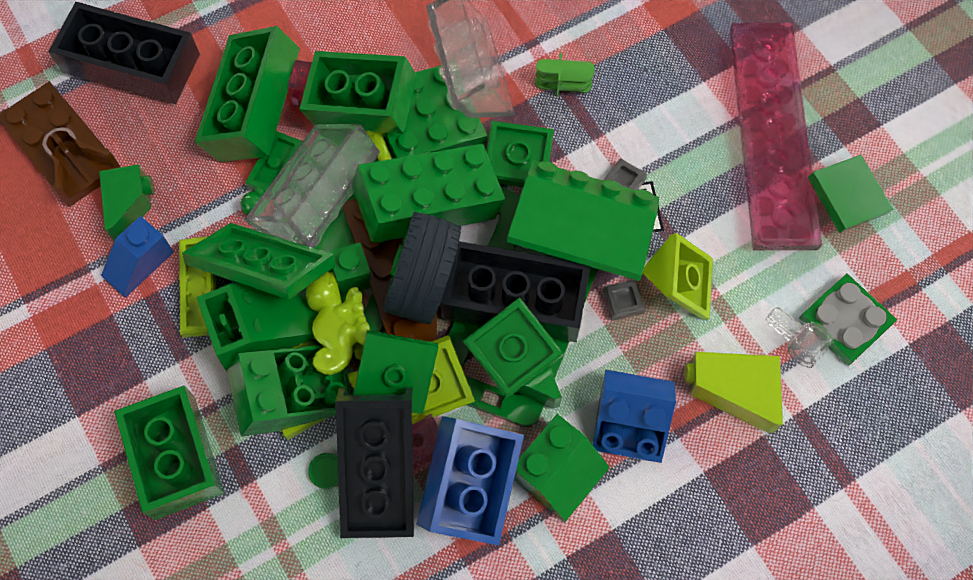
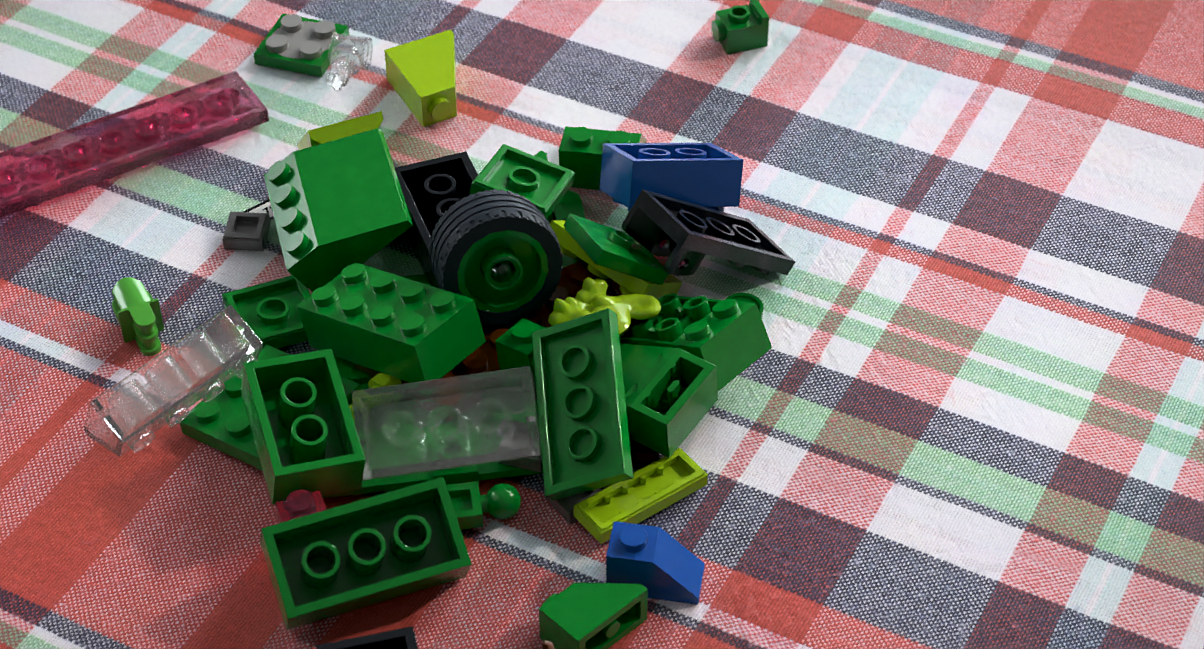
camera: 120 degrees left, 25 degrees down
(168, 453) = (834, 402): green brick -> none
(634, 415) = (503, 116): blue slope -> none
(850, 193) = (159, 72): green tile -> none

